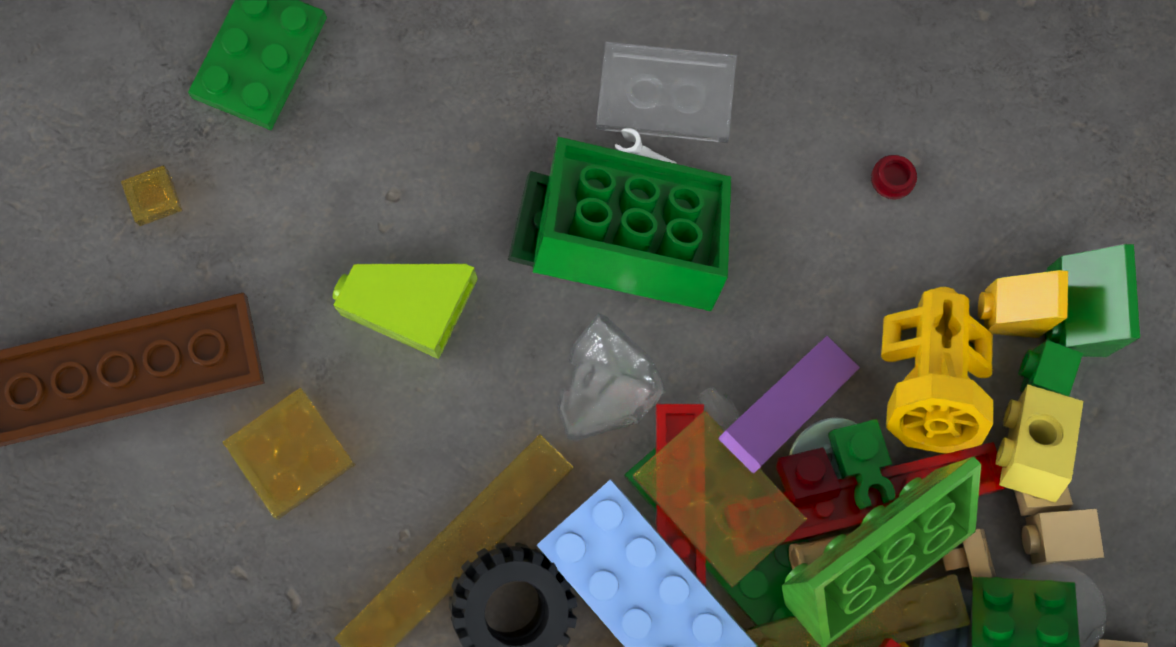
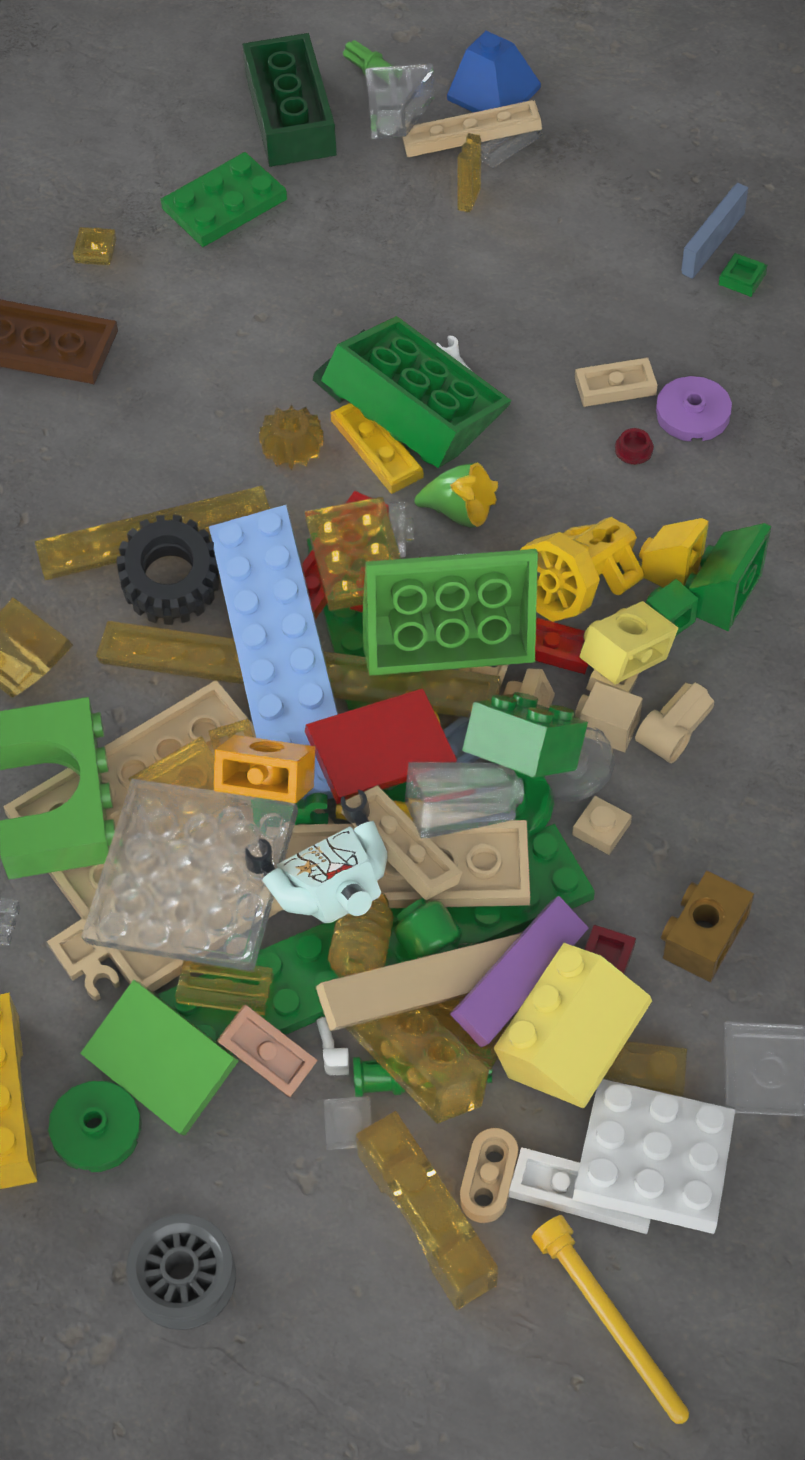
camera: 30 degrees right, 20 degrees down
(288, 453) = (81, 427): clear yellow plate -> none
(407, 301) = (226, 373): lime slope -> none
(527, 335) = (291, 436): none -> clear yellow gear
(610, 383) = (332, 476): clear slope -> none
(639, 317) = (377, 448): none -> yellow tile
(666, 92) = (499, 331): clear tile -> none
(756, 338) = (460, 494): none -> hat
(788, 404) = (448, 529): medium lavender tile -> none
(830, 102) = (615, 382): none -> tan plate
(919, 114) = (693, 408): none -> medium lavender plate
(1127, 518) = (671, 728): none -> tan piece

